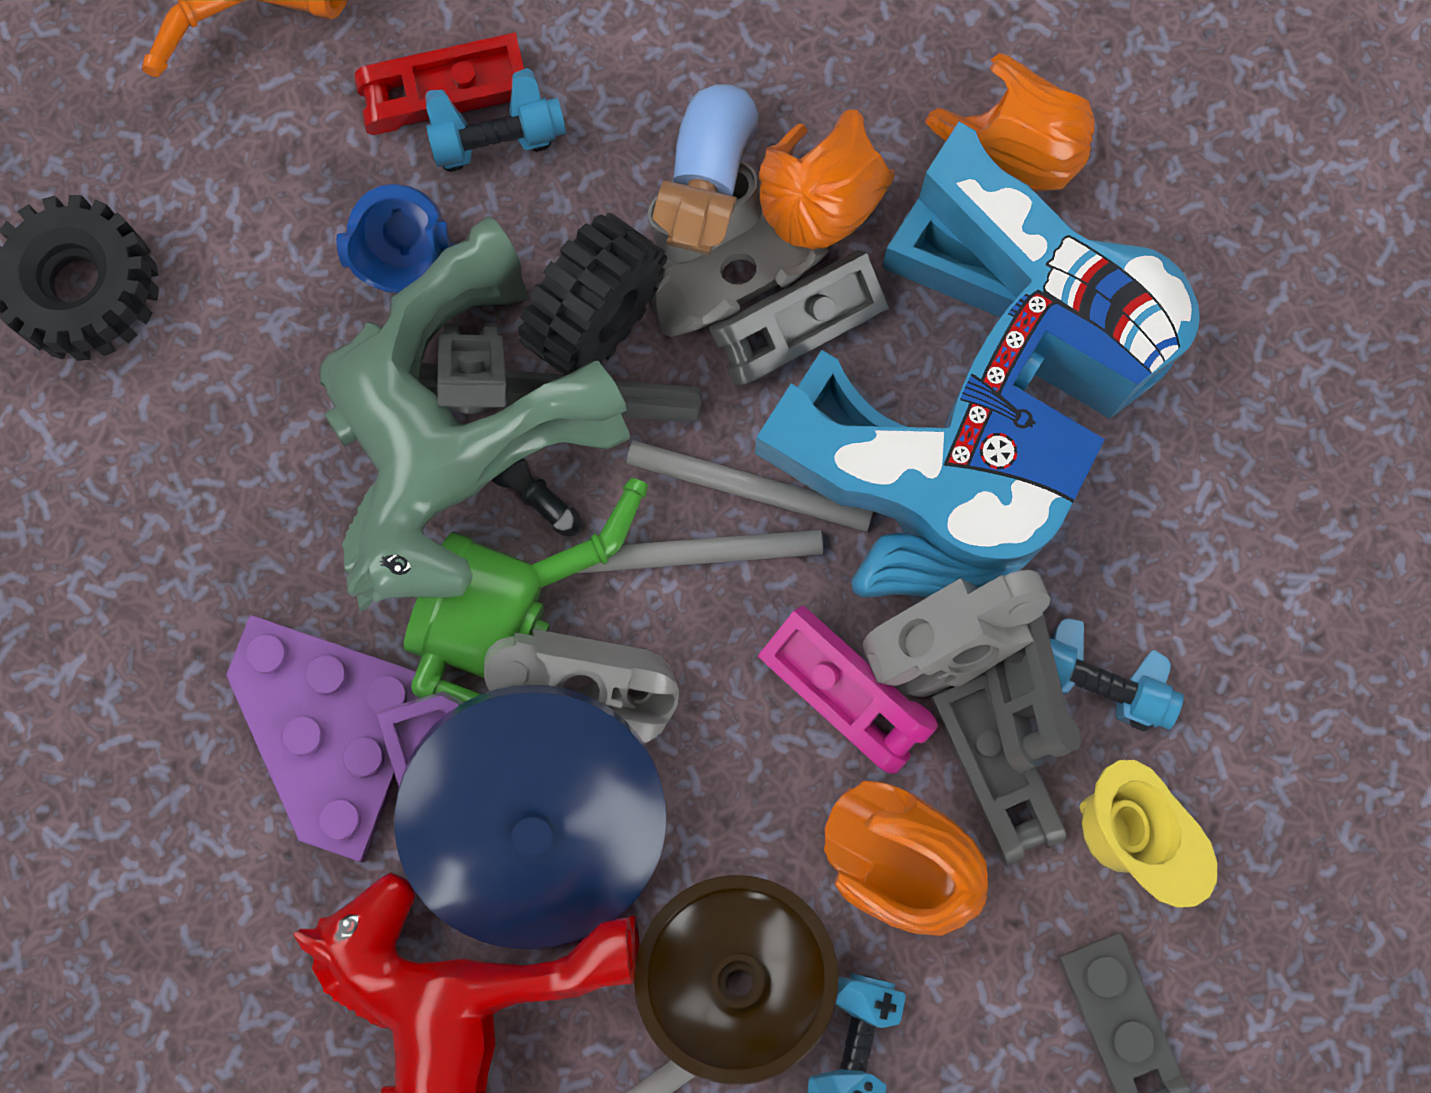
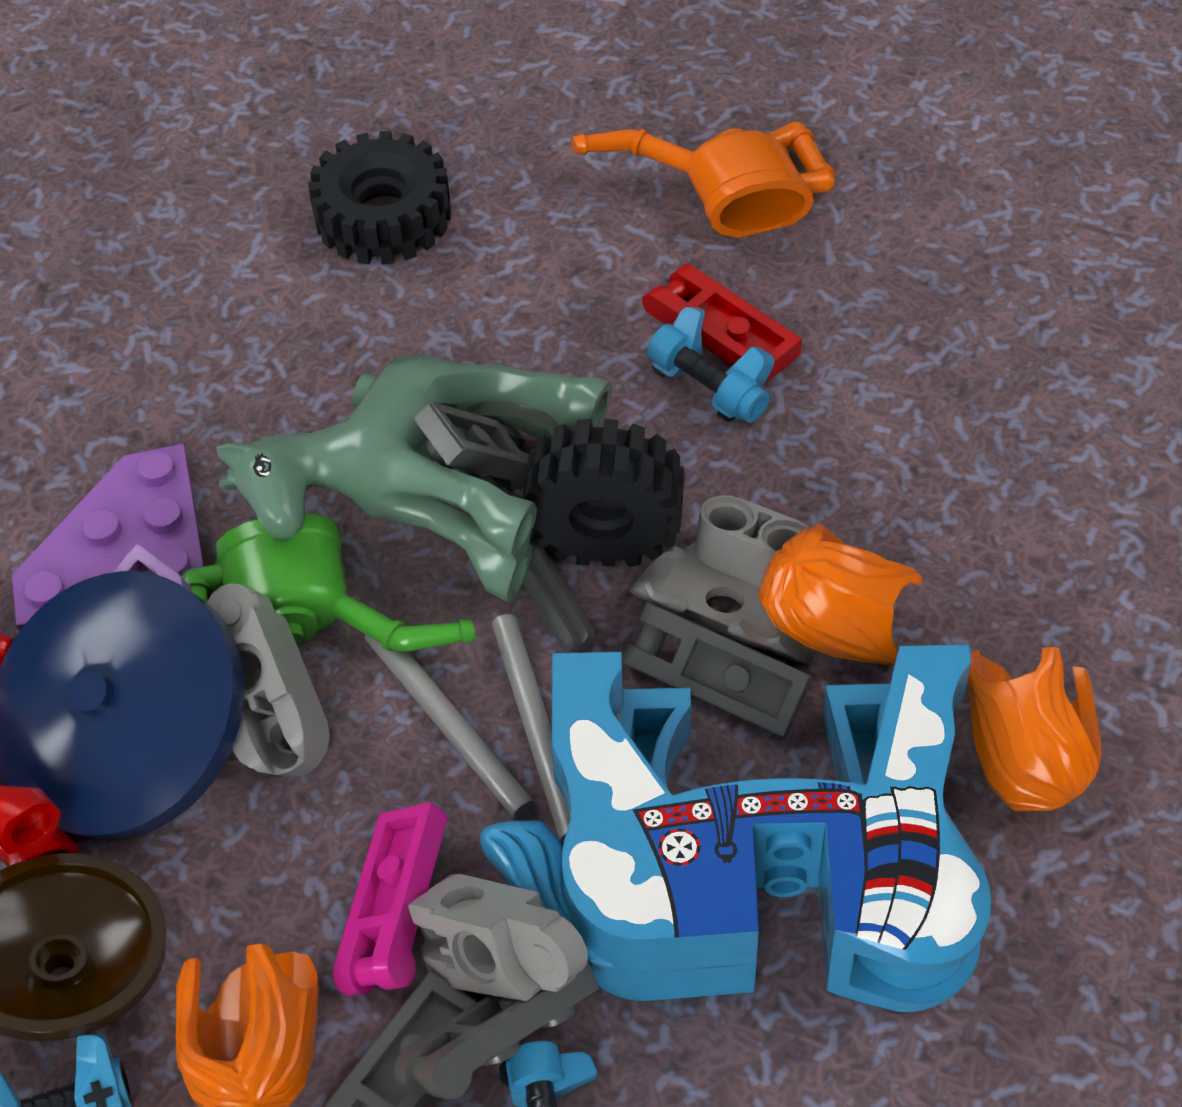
camera: 60 degrees right, 25 degrees down
(392, 237) = (560, 343): blue cap -> none
(564, 519) = (425, 551): black piece -> none
(707, 160) = (779, 502): piece -> none

